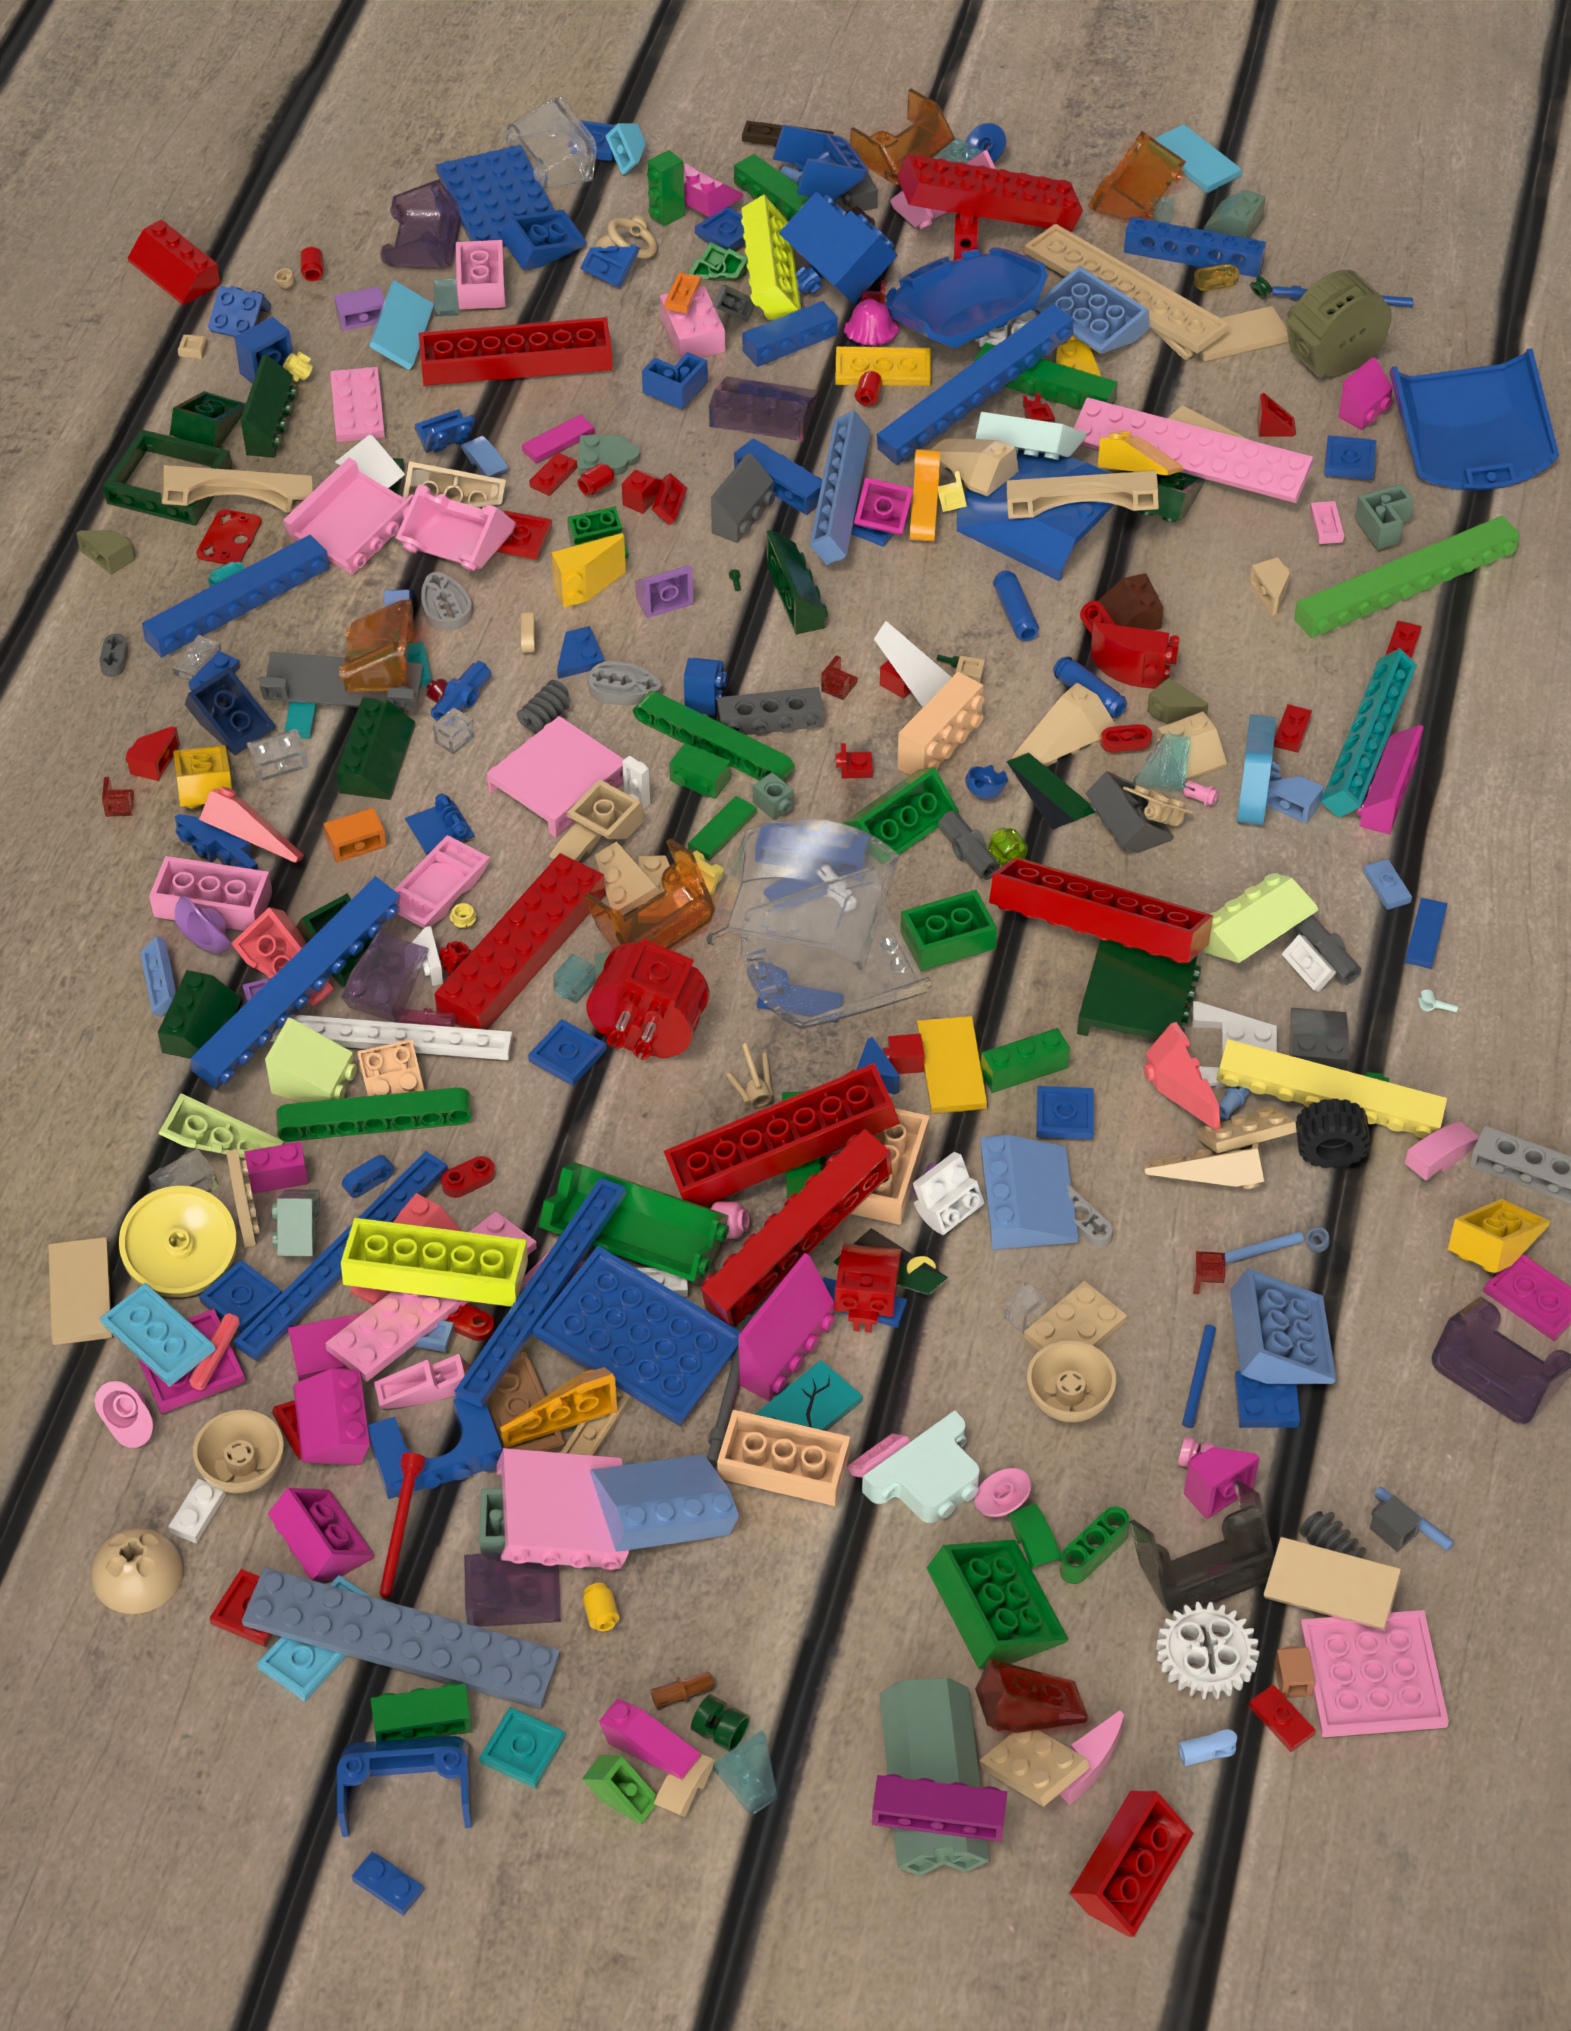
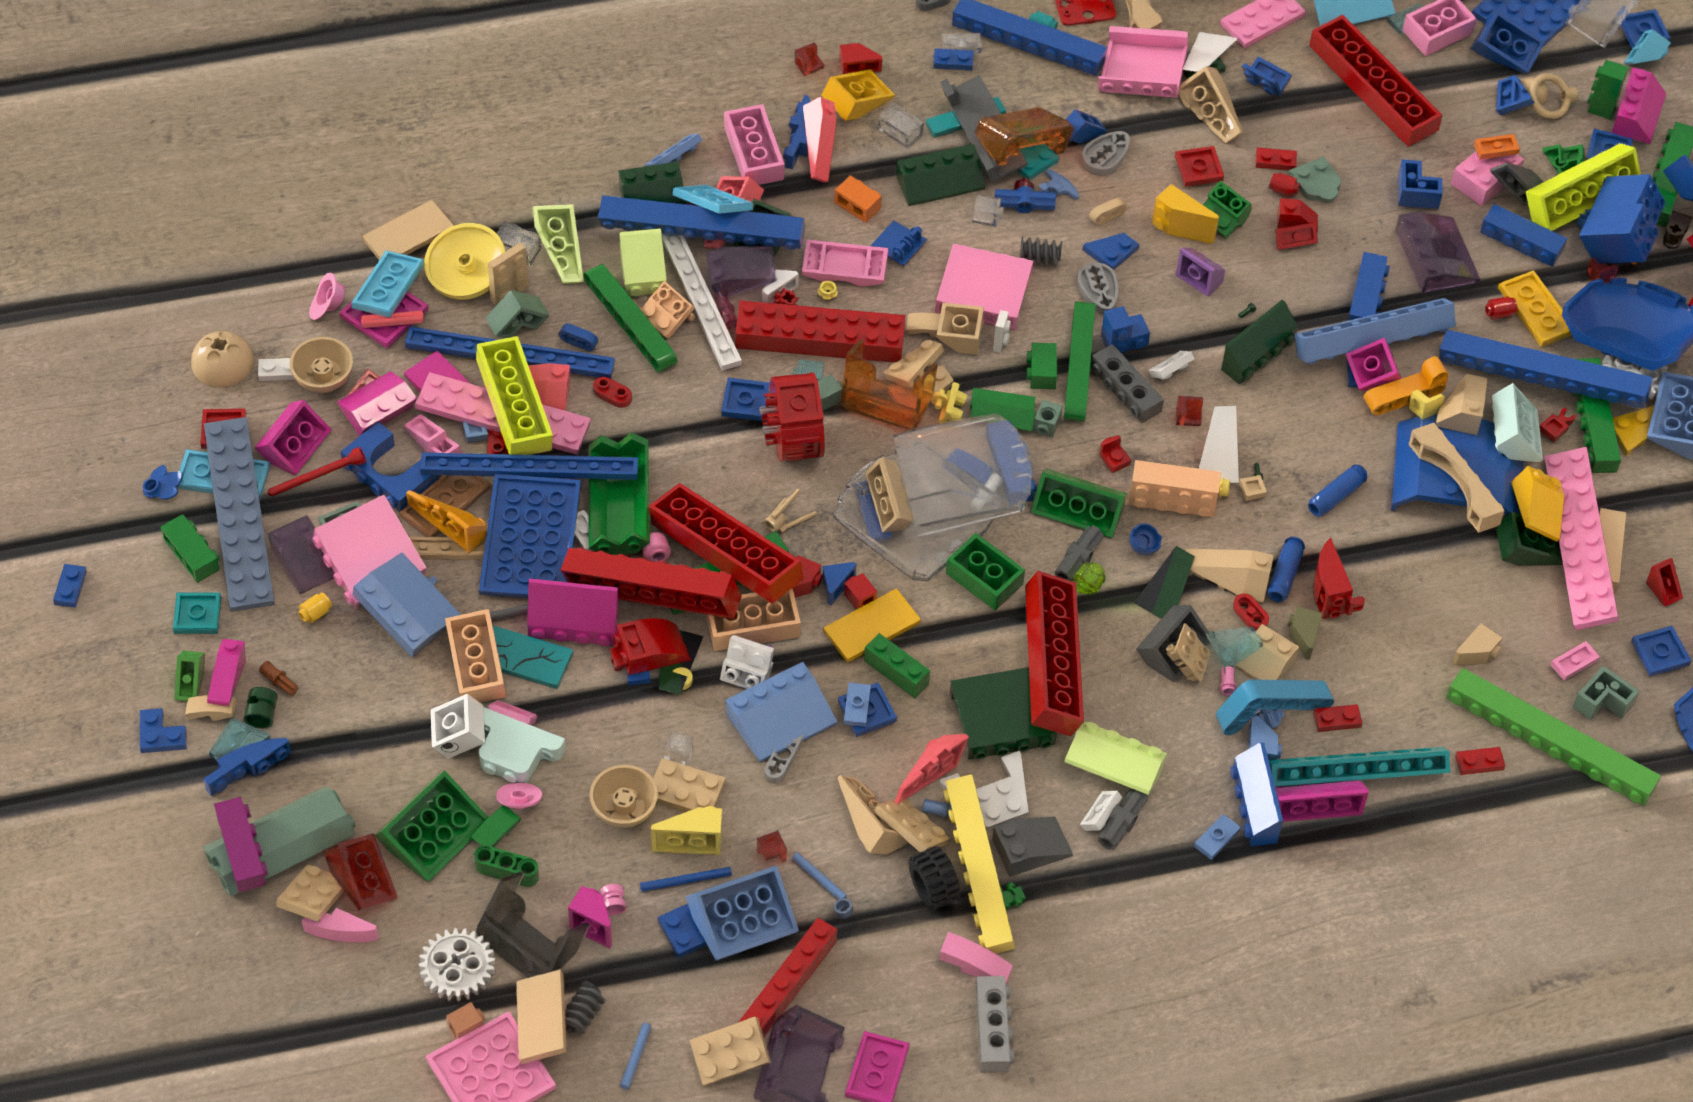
camera: 60 degrees right, 5 degrees up
(202, 926) = (723, 154): medium lavender hat -> none
(229, 711) = (920, 81): dark blue slope -> none
(240, 1293) = (447, 314): blue plate -> none
(273, 955) = (712, 198): none -> medium azure tile
(276, 1167) = (554, 285): dark pink brick -> none
(297, 1705) = (162, 483): none -> blue plate
(444, 1755) = (160, 575): blue windscreen -> none
(453, 529) = (1170, 123): bright pink windscreen -> none
(458, 659) = (1059, 185): none -> medium blue piece
(485, 457) = (1260, 112): medium blue slope -> none
(557, 439) = (1312, 146): dark pink tile -> none
(684, 1868) = (156, 737): none -> blue plate
(728, 845) = (1020, 418): none -> green tile
(741, 499) = (1320, 276): dark grey slope -> none
(769, 666) = (1167, 367): none -> white plate
(792, 1770) = (252, 758): none -> blue slope
(809, 963) = (889, 495): none -> tan slope
(871, 324) = (1570, 279): dark pink hair -> none
(877, 1513) = (457, 726): none -> white brick
(1060, 1114) = (857, 704): none -> medium blue plate
(1091, 609) = (1357, 550): red plate -> none
(1132, 1862) = (271, 980): red slope -> none
(1134, 603) = (1388, 565): copper slope -> none
(1157, 1329) = (690, 832): none -> light yellow slope
(1208, 1747) = (382, 993): light blue bar -> none
(1282, 1718) = (428, 1031): red plate -> none
(1364, 822) = (1257, 796): none -> slope
(1391, 1328) = (792, 975): none -> red brick
(1395, 1523) = (620, 1042): dark grey brick -> none
(1426, 933) = (1184, 879): blue tile -> none
(1428, 1002) = (1114, 904): light aqua hand -> none
(1463, 1415) = (730, 1051): none -> tan plate
(1495, 1234) = (913, 1020): yellow slope -> none

